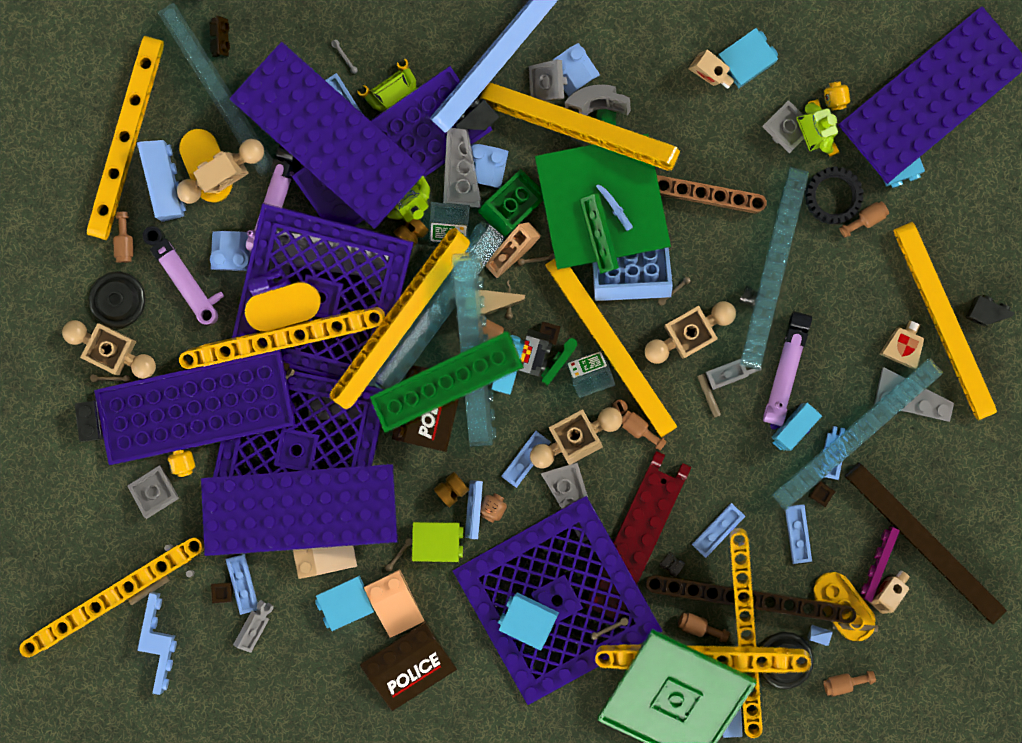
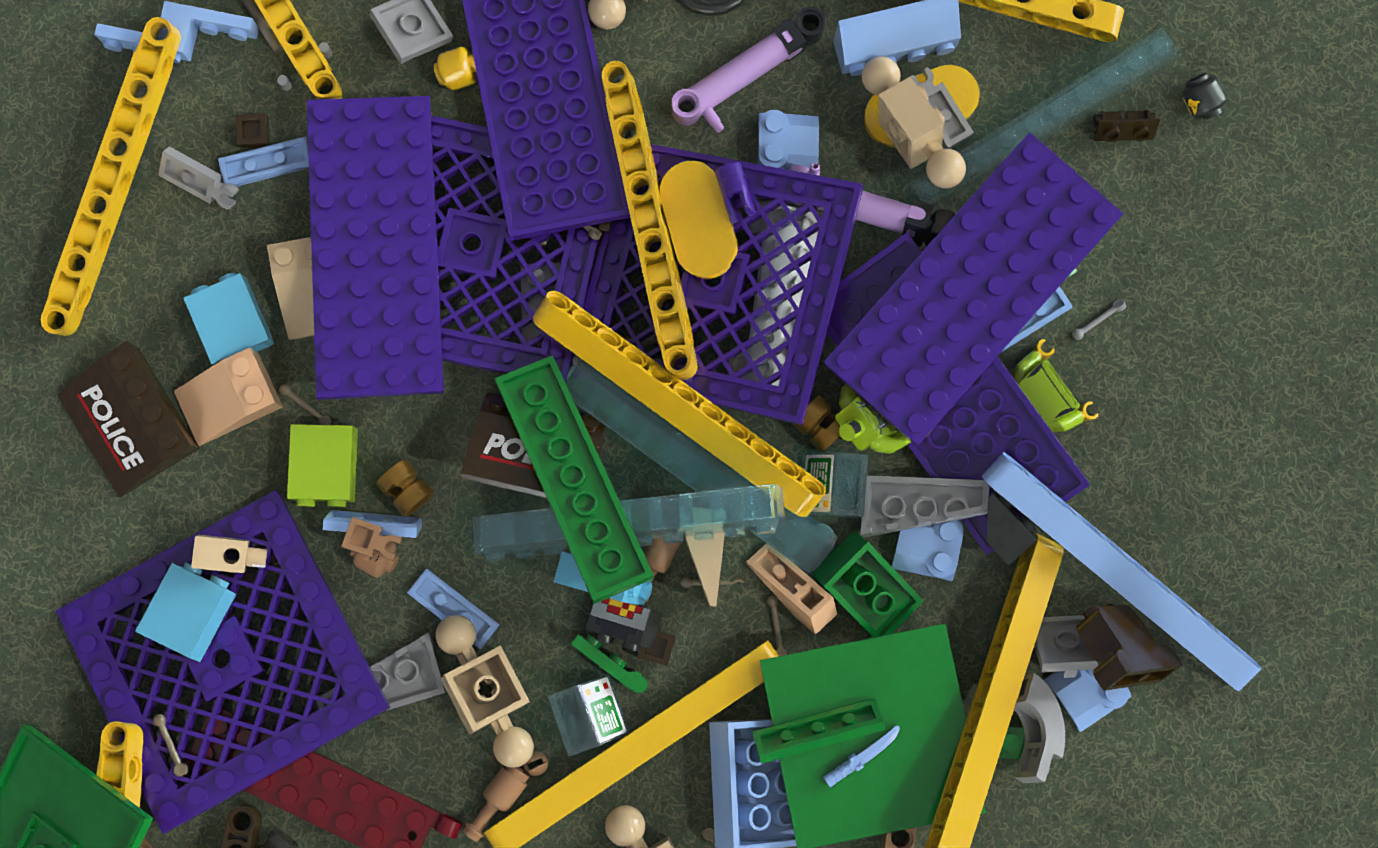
camera: 85 degrees right, 5 degrees down
(207, 152) = (956, 126): none -> light grey plate
(253, 679) = (111, 177): none -> yellow beam
(484, 511) = (366, 538): none -> medium nougat plate
(493, 605) = (210, 554): none -> tan torso
(549, 47) = (1124, 648): none -> dark brown brick

